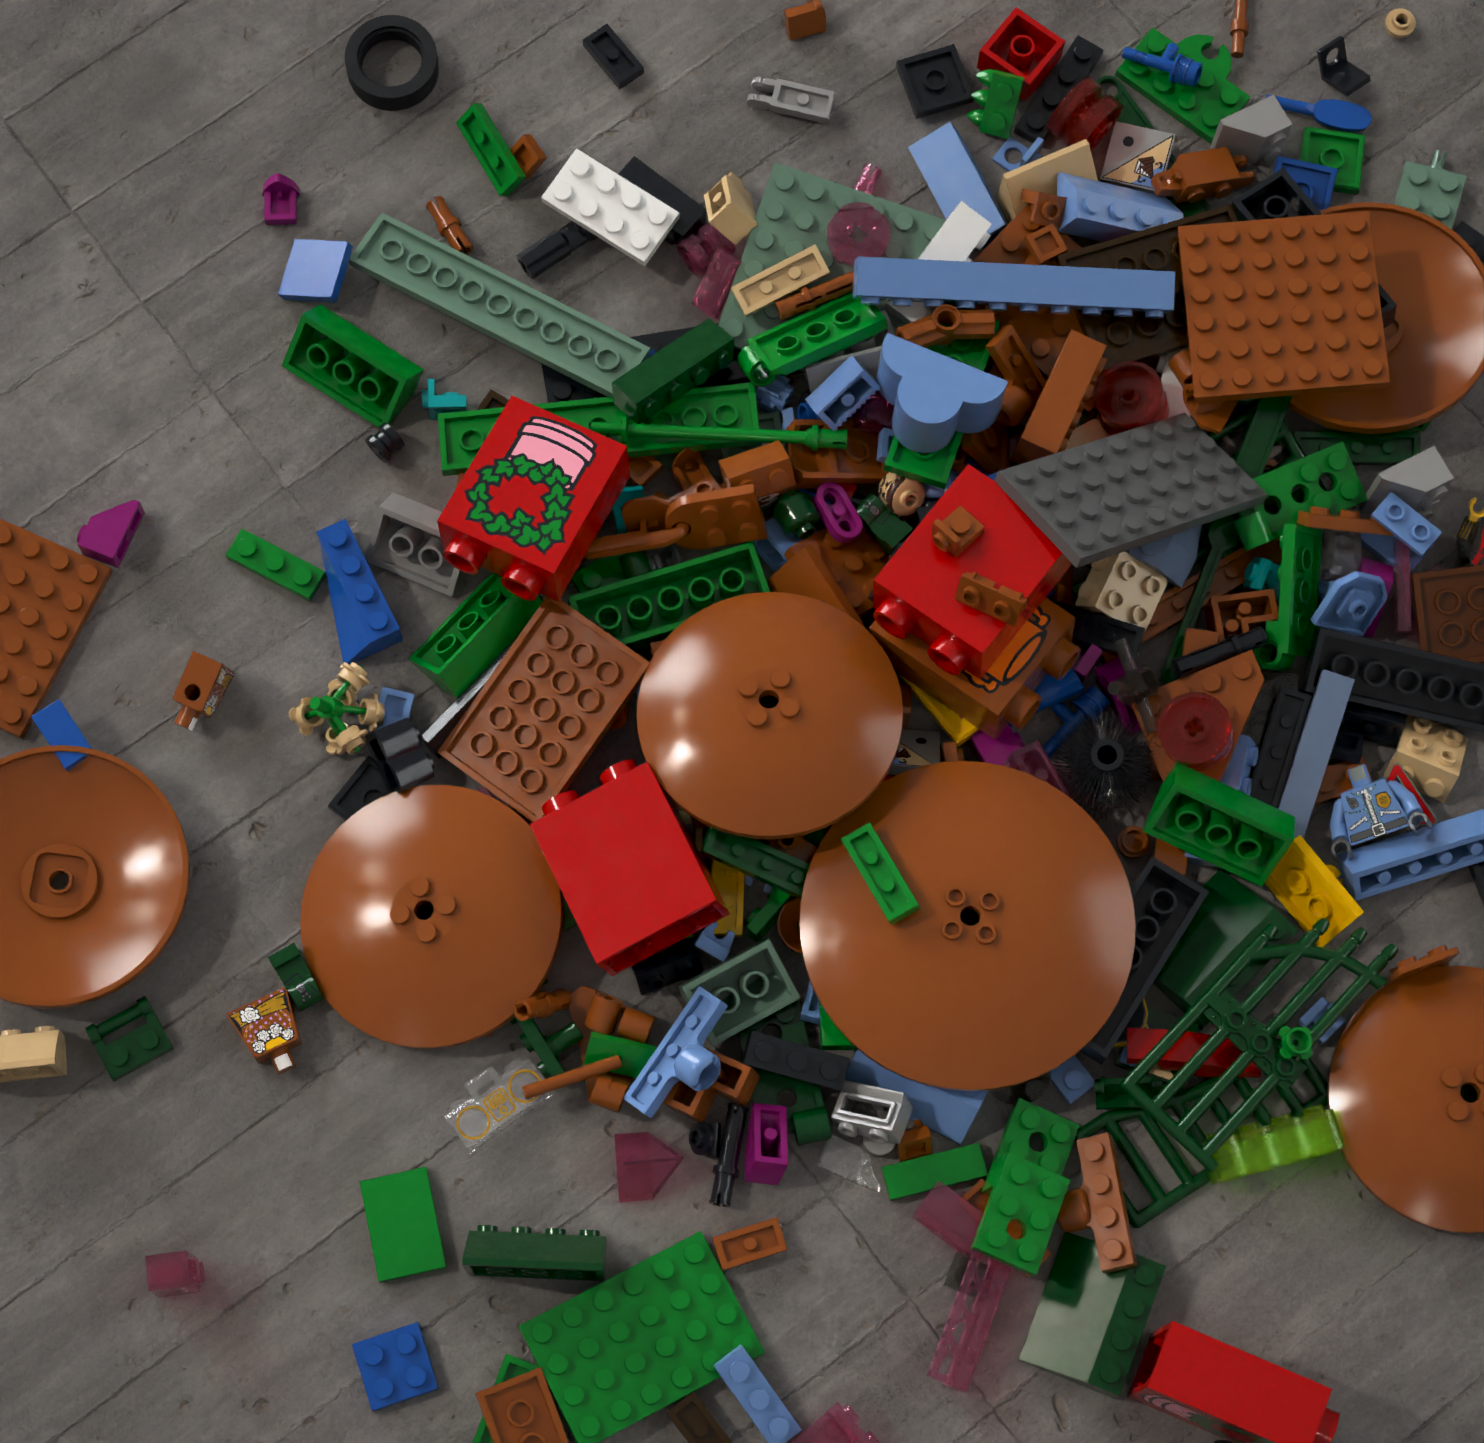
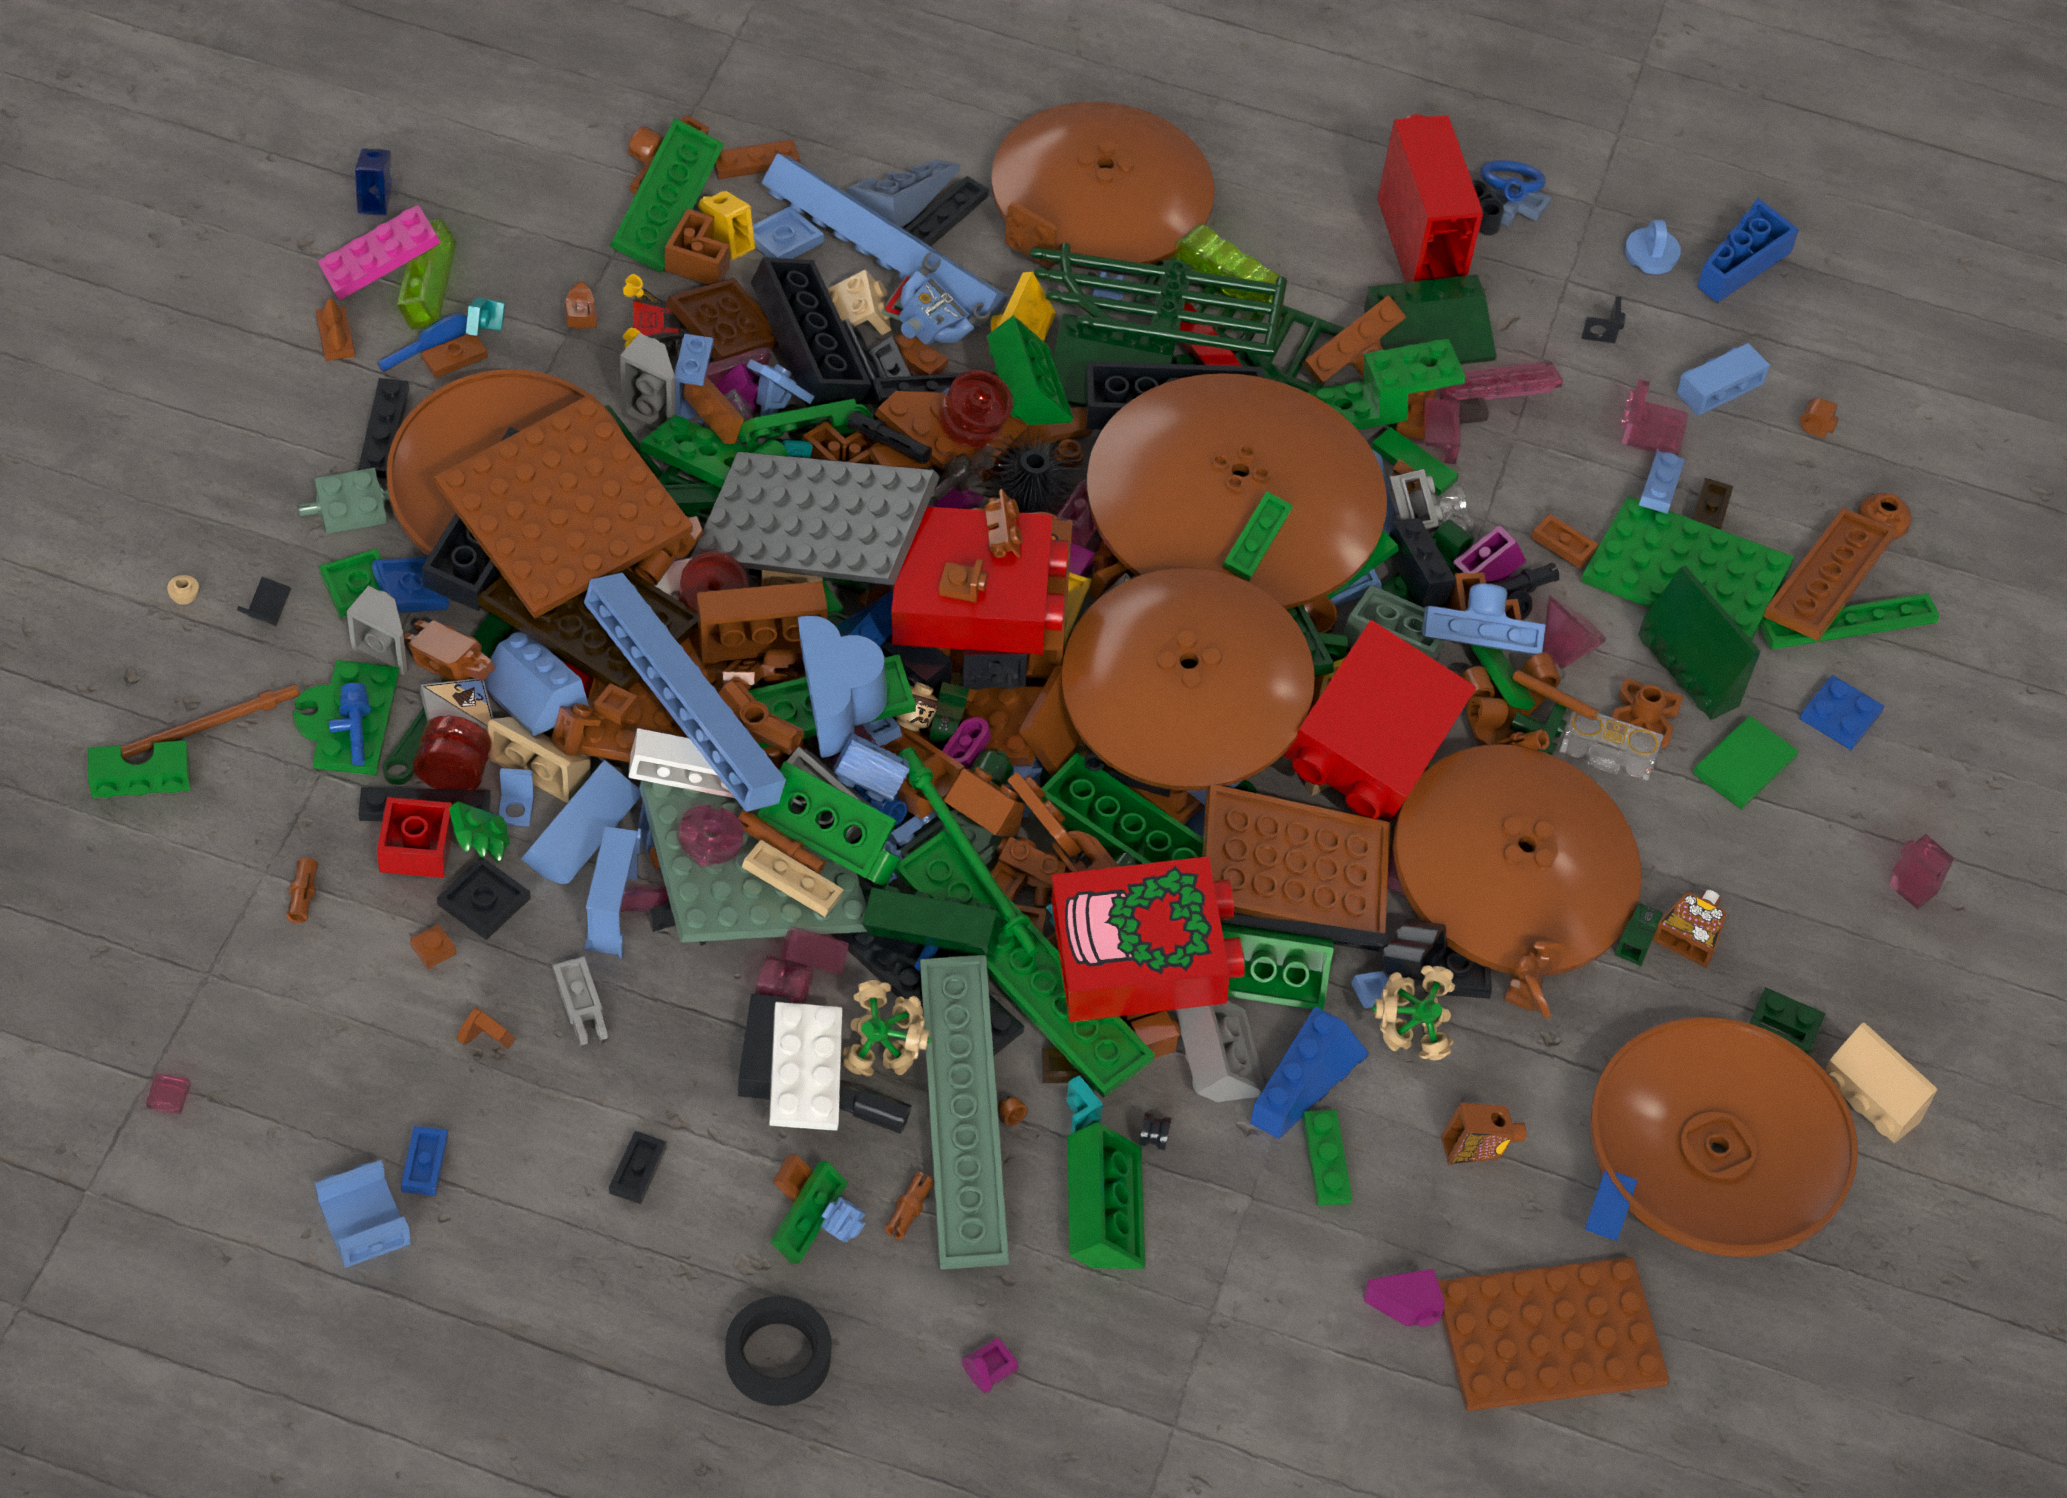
camera: 125 degrees left, 20 degrees down
(306, 829) = (1526, 984): none -> dark orange animal
(315, 270) = (1038, 1283): tile -> none
(465, 165) = (843, 1219): none -> medium blue gear
(481, 351) = (1012, 1110): none -> dark orange hinge
(493, 1164) = (1648, 708): none -> dark orange plant
(624, 289) = (871, 1028): none -> tan plant
(731, 208) = (737, 970): tan hinge -> none
(871, 147) = (614, 865): none -> medium blue piece
(914, 26) = (433, 946): none -> dark orange plate
(1302, 1036) = (1156, 265): green plate -> none
(1315, 748) = (914, 361): sand blue tile -> none
(1330, 113) = (313, 599): blue piece -> none

